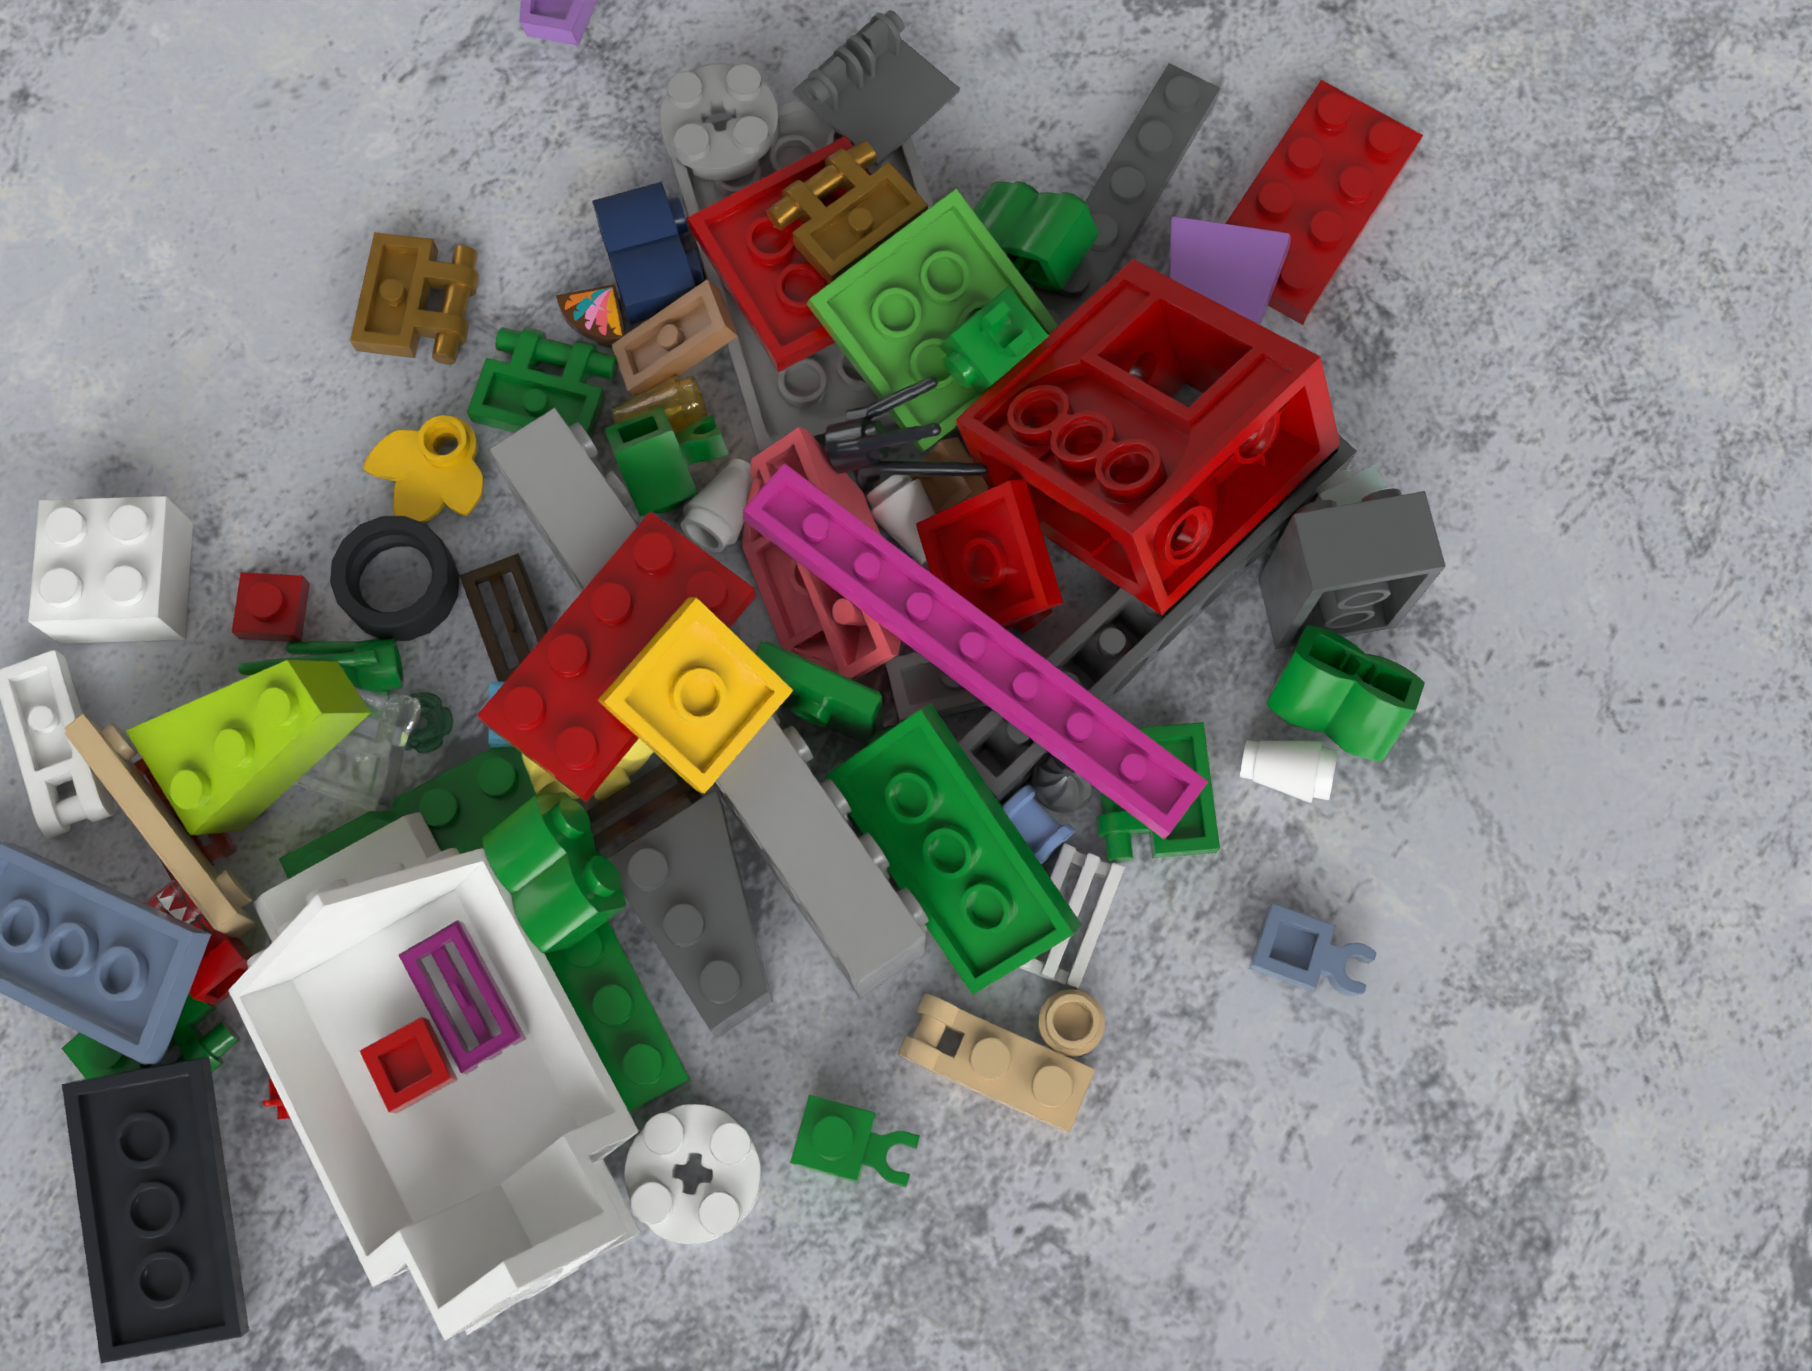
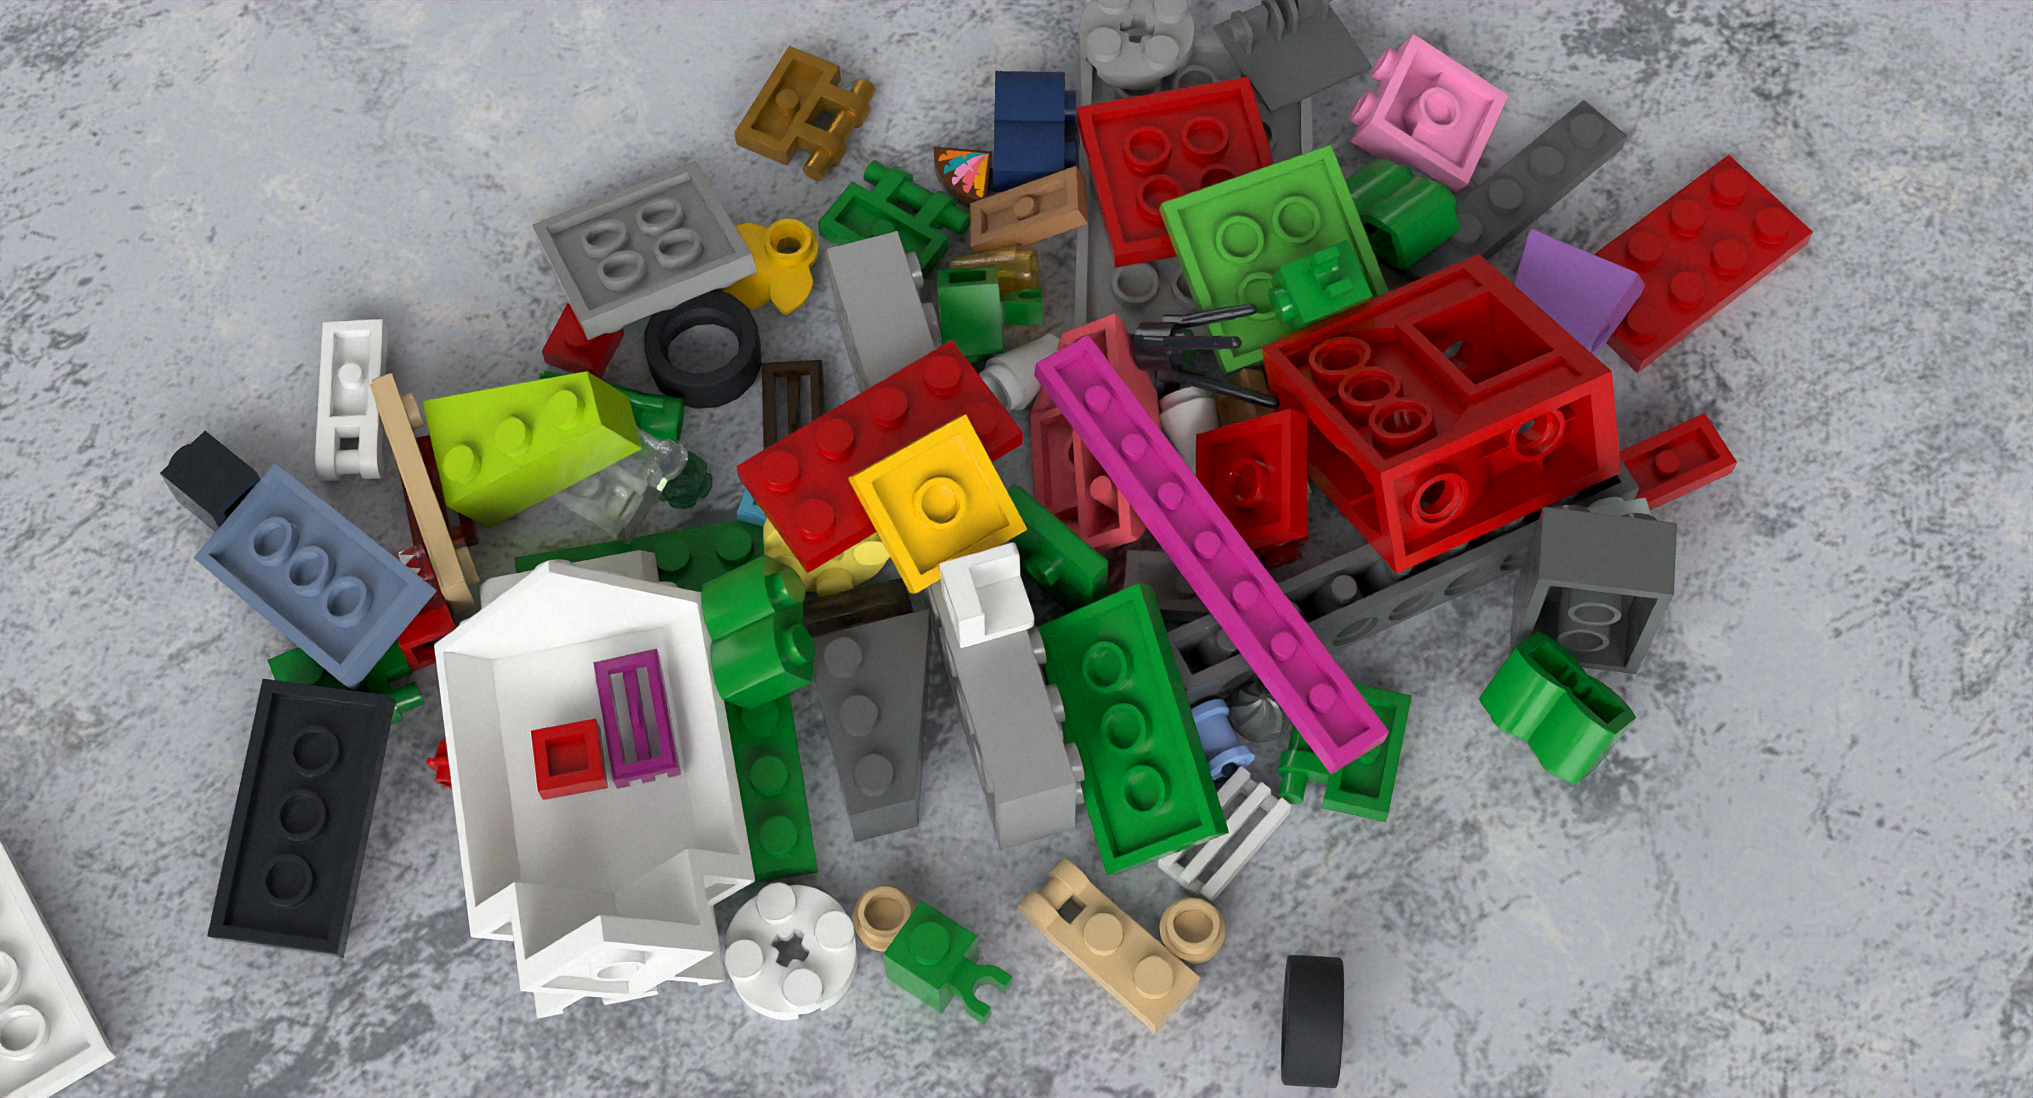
camera: 20 degrees right, 10 degrees down
(111, 570) = (456, 267): white brick -> none
(299, 496) = (643, 250): none -> light grey plate
(773, 1109) = (881, 915): none -> tan plate
(775, 773) = (986, 595): none -> white panel
(854, 223) = (1228, 150): pearl gold plate -> none
(1025, 120) = (1427, 113): none -> bright pink plate
(1220, 1085) = (1312, 1021): none -> black tyre
(1291, 767) = (1485, 764): white cone -> none
(1299, 951) = (1436, 931): sand blue plate -> none
(1375, 404) = (1678, 461): none -> red plate

